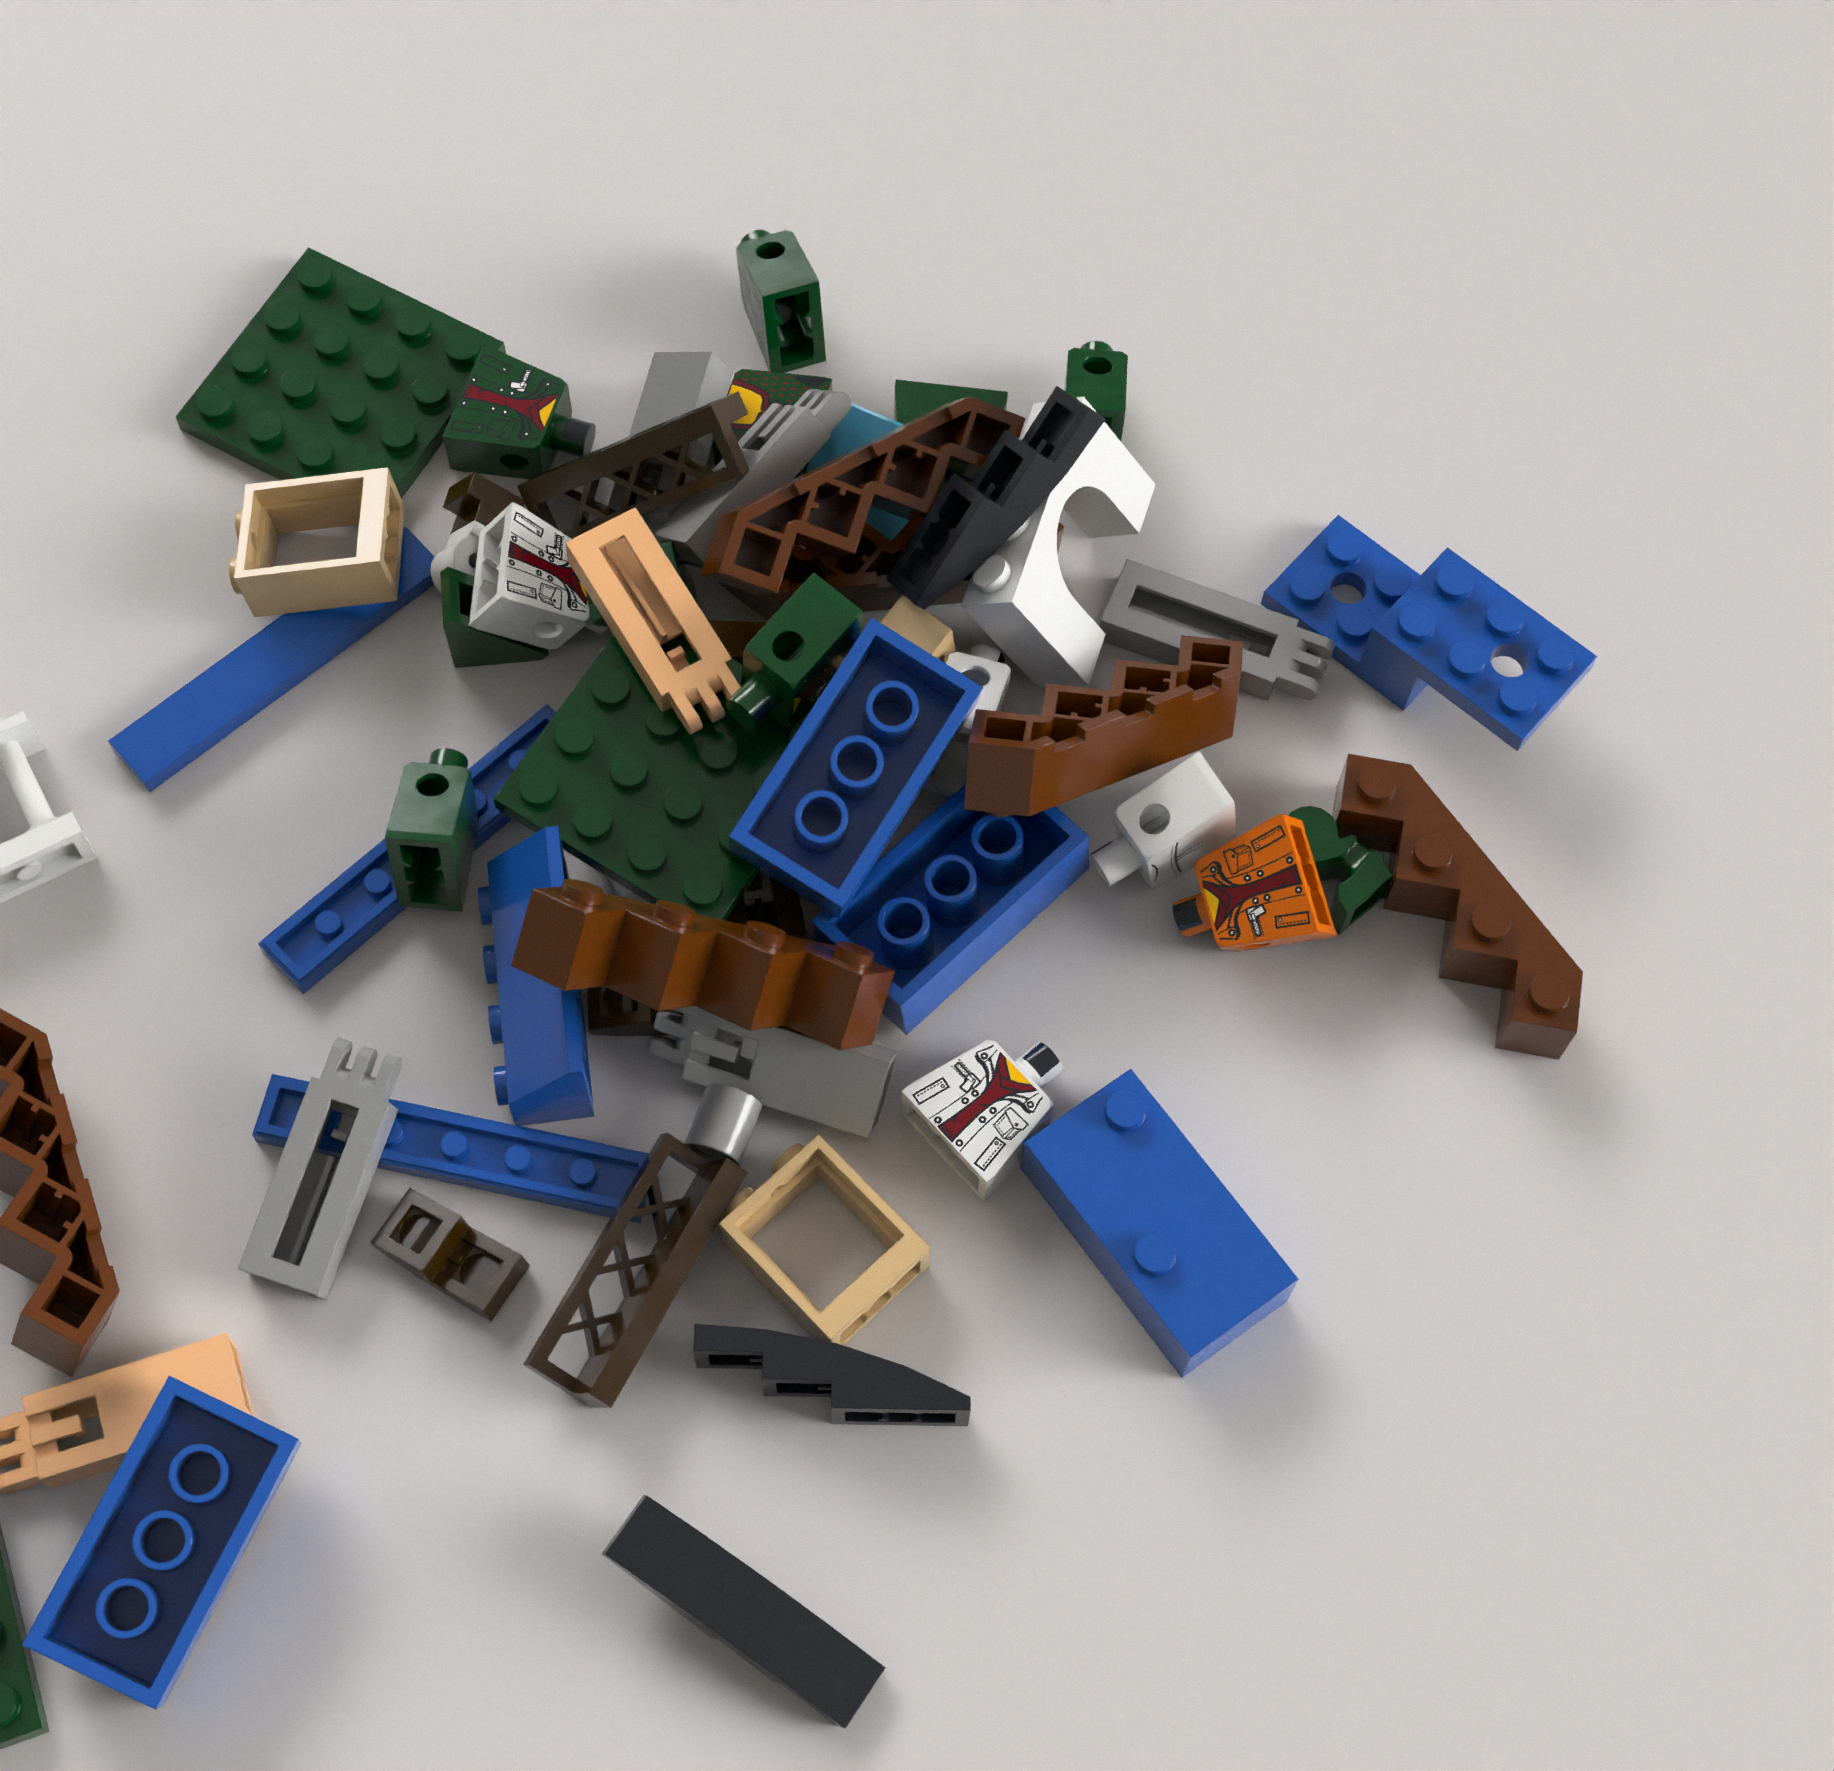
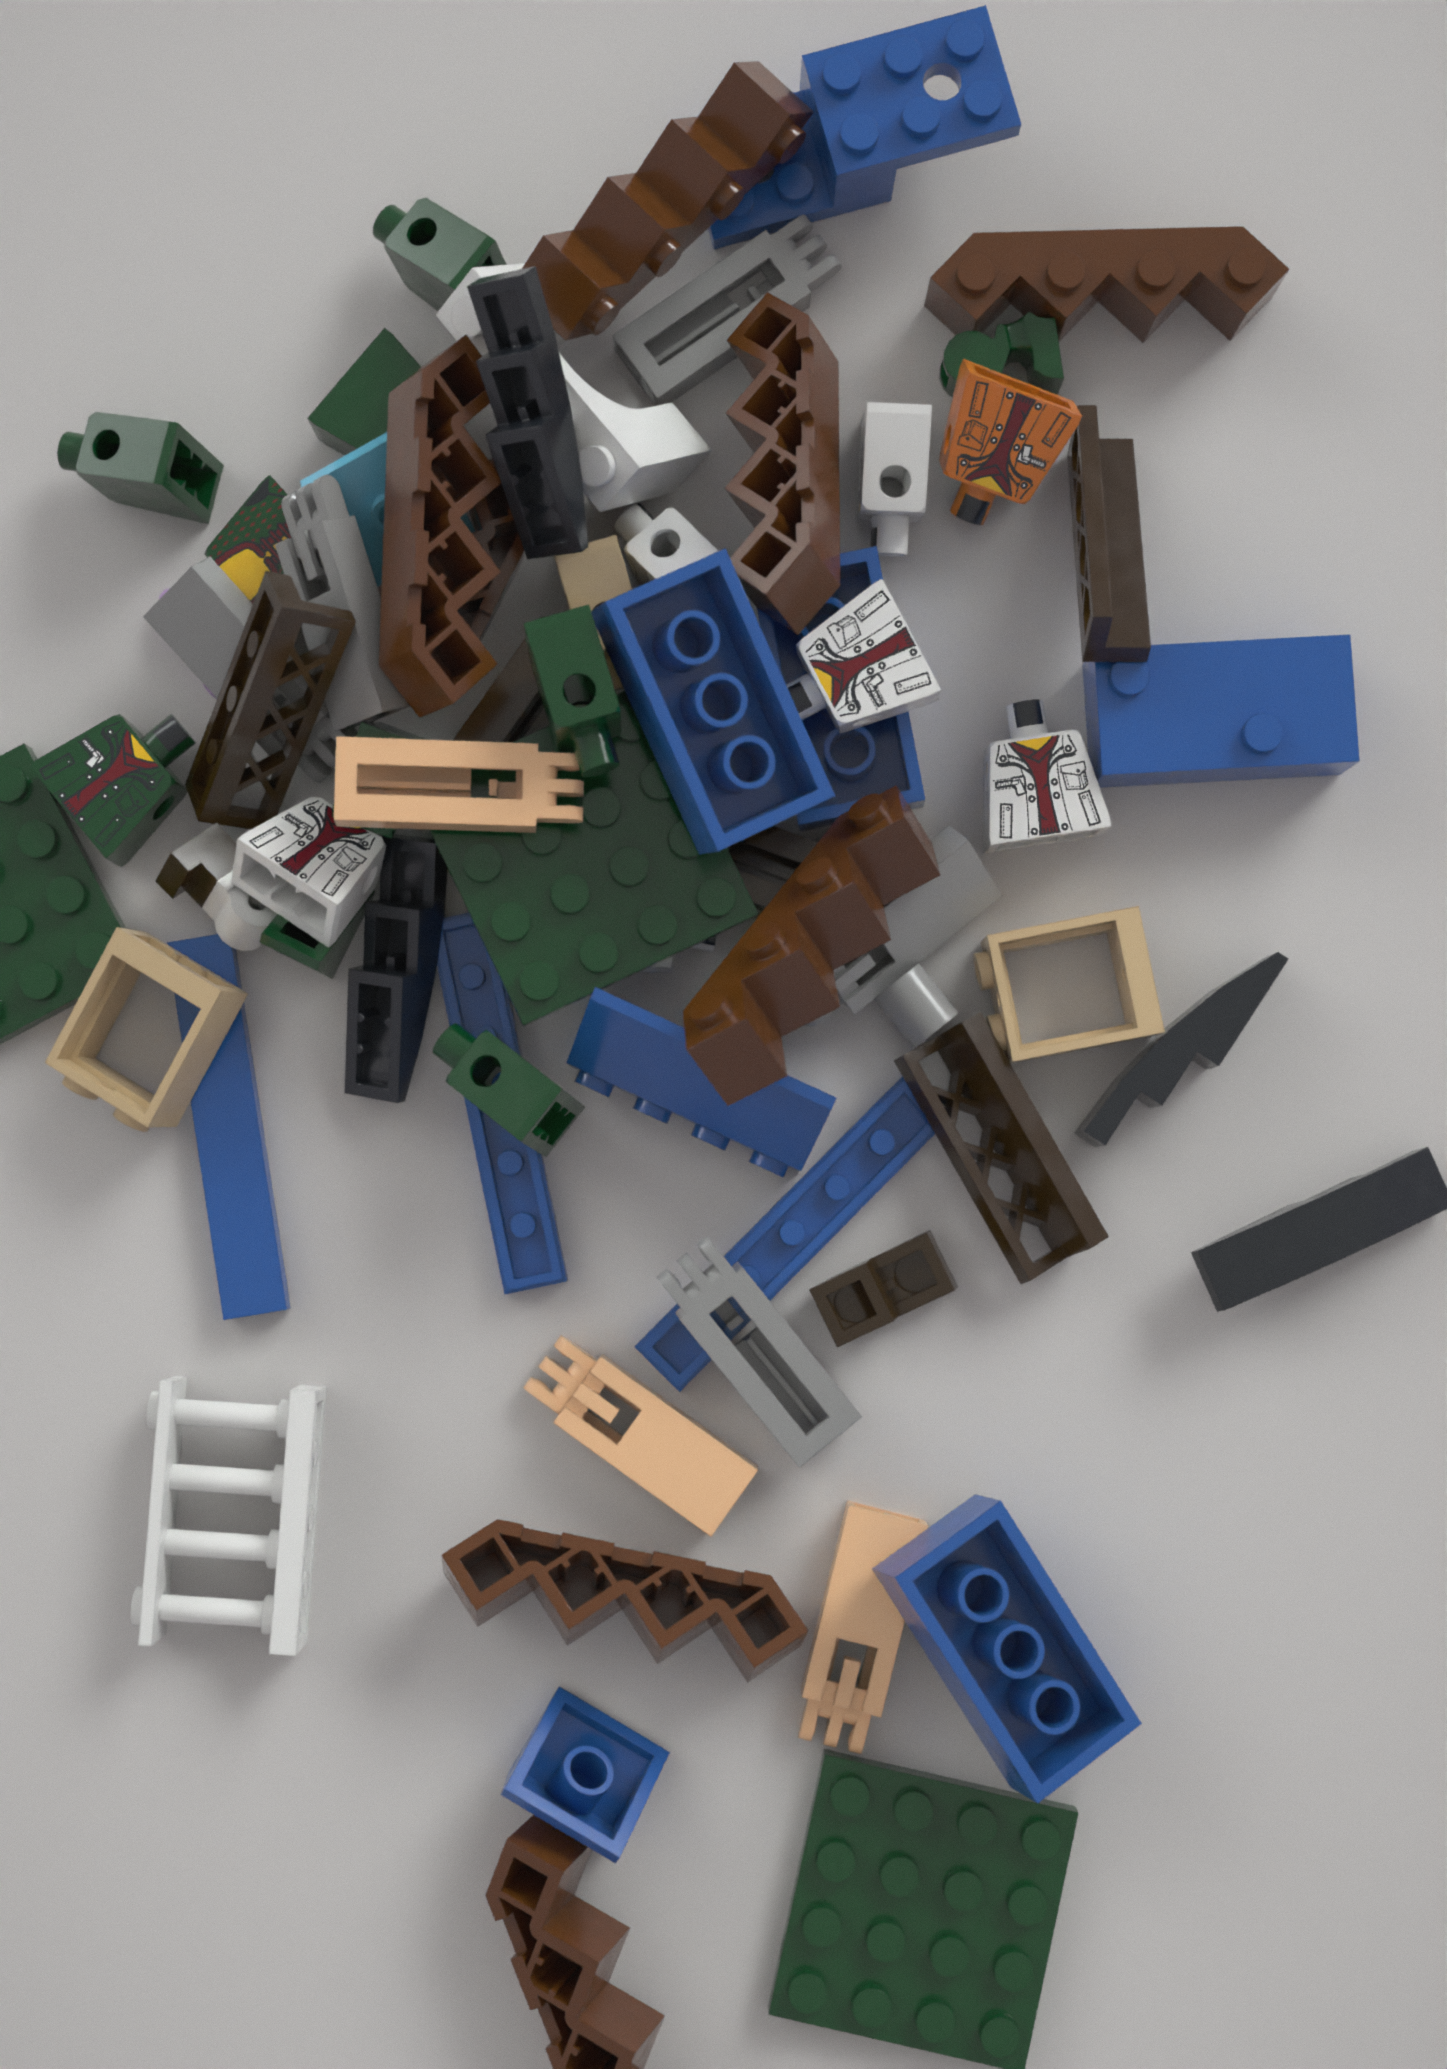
camera: 55 degrees left, 20 degrees up
(192, 1147) = (662, 1446): none -> light nougat hinge
(472, 707) = (399, 966): none -> black slope
(973, 874) = (863, 664): none -> white torso
(1229, 1025) = (1107, 545): none -> dark brown fence
(1270, 527) = (682, 188): none -> reddish brown brick

